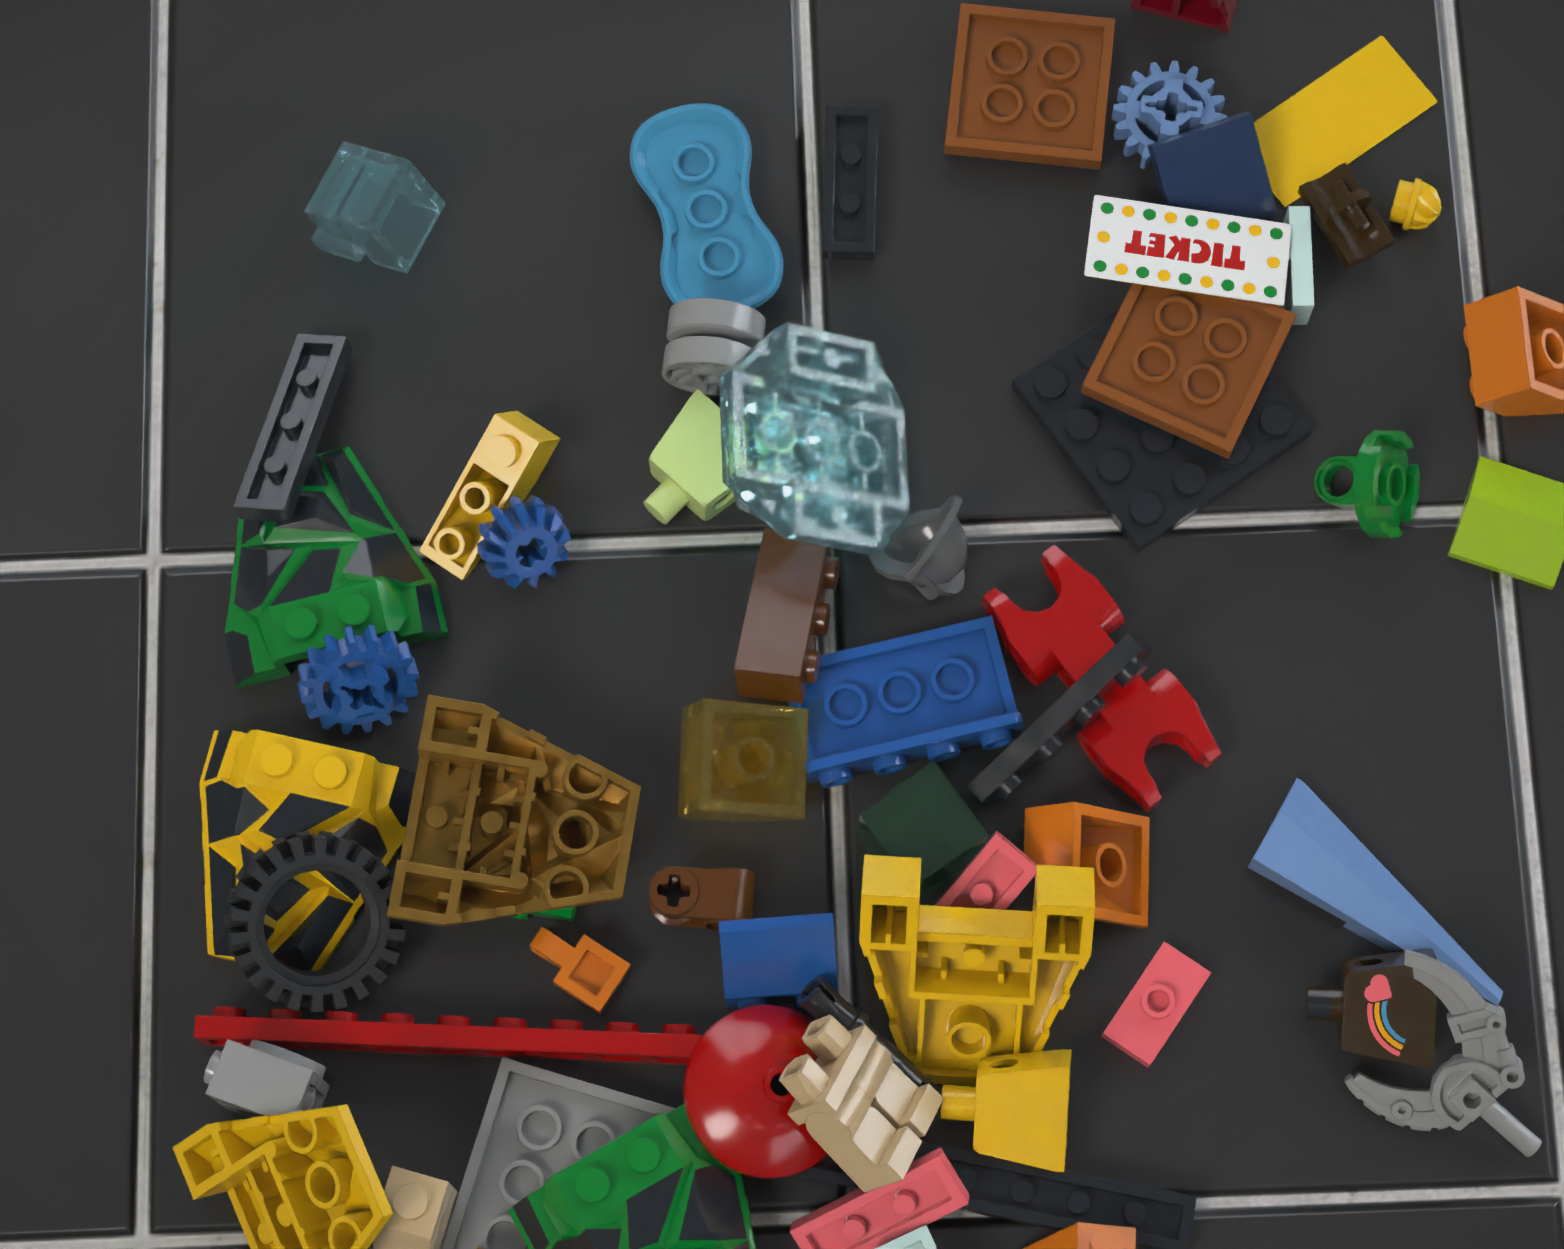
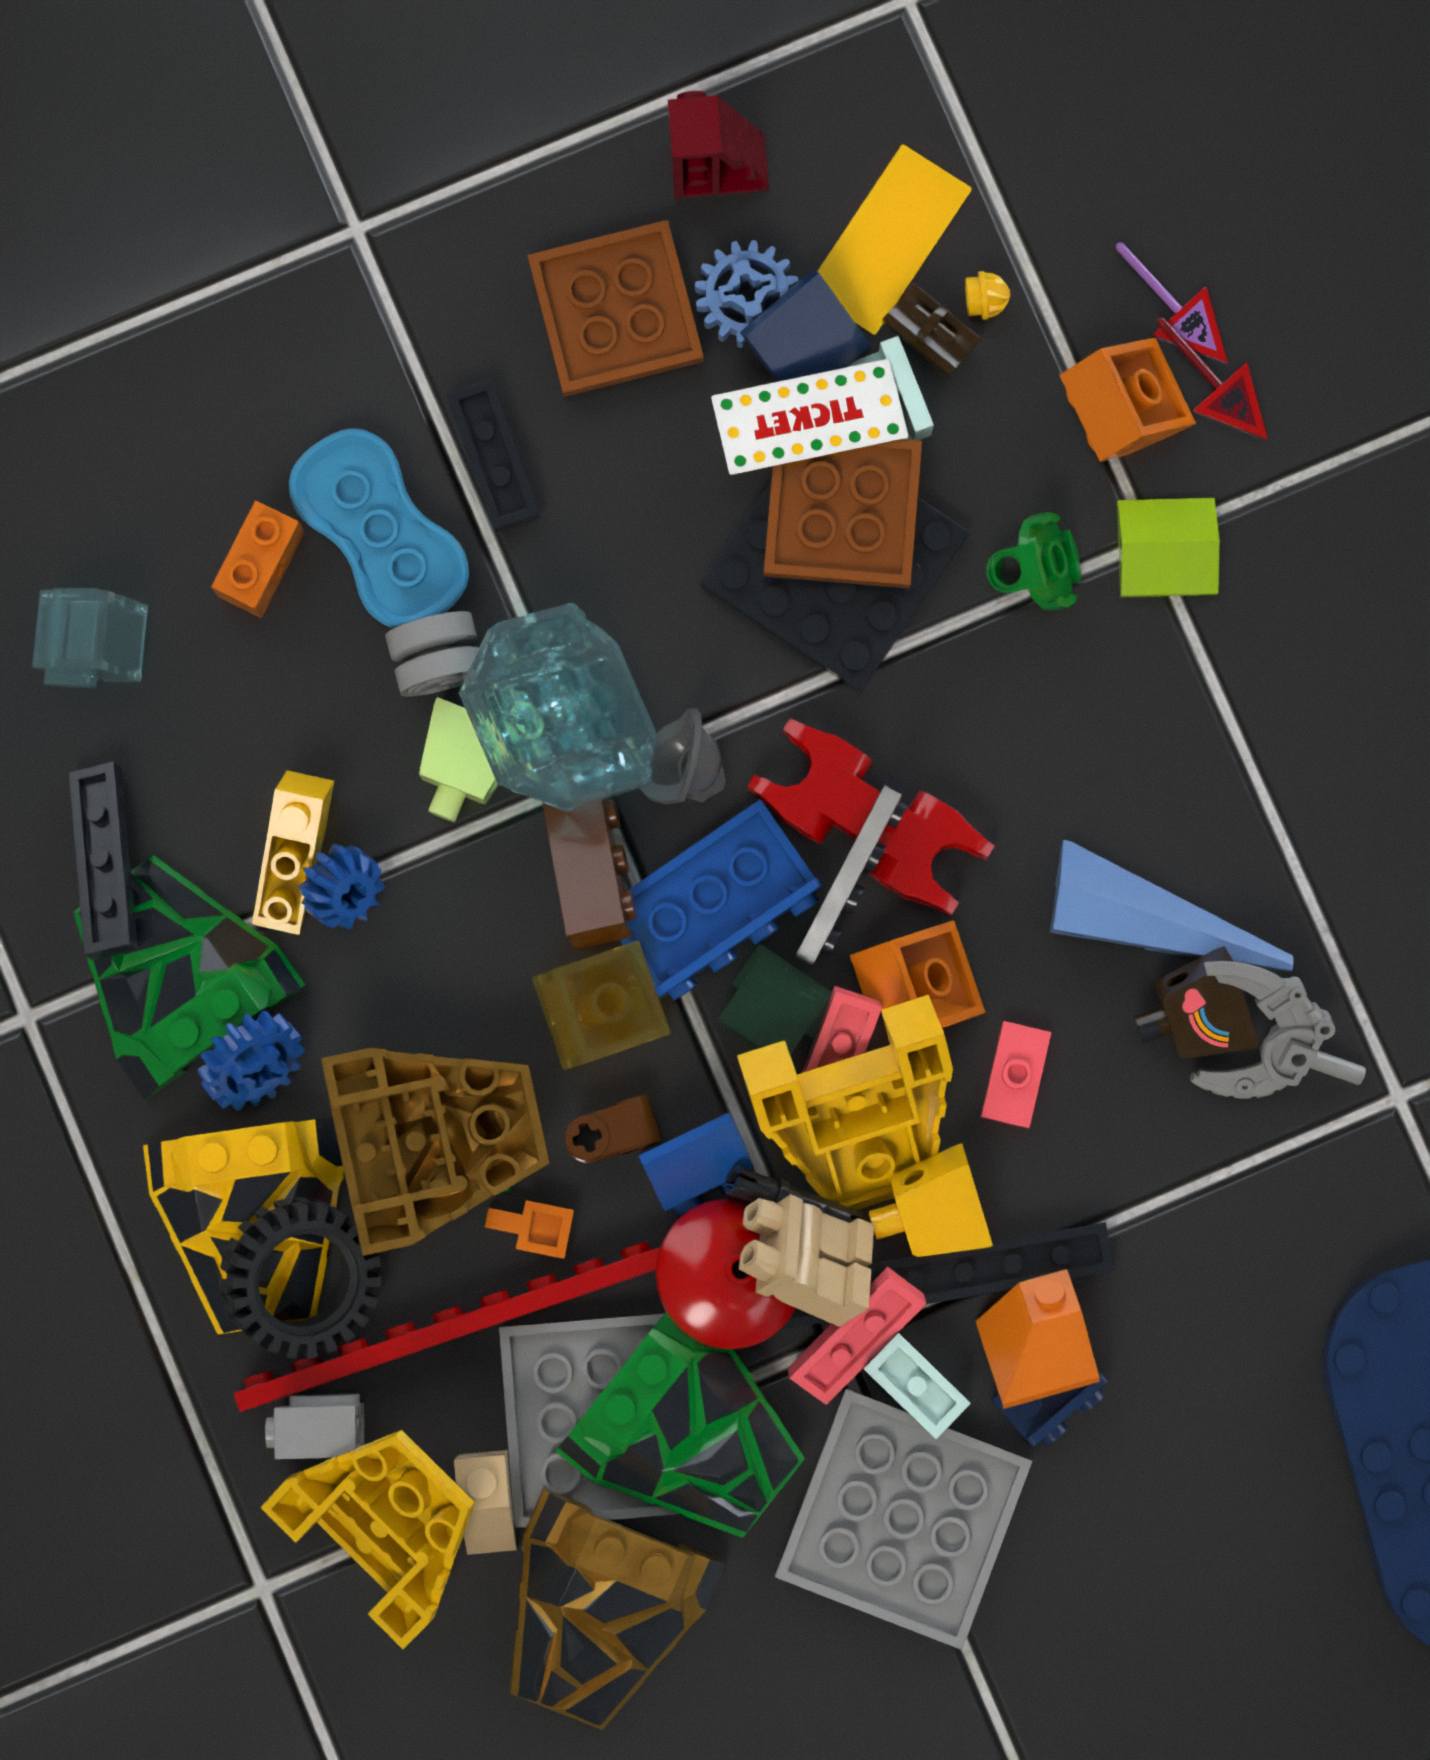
camera: 25 degrees left, 10 degrees up
(573, 195) = (258, 559): none -> orange brick

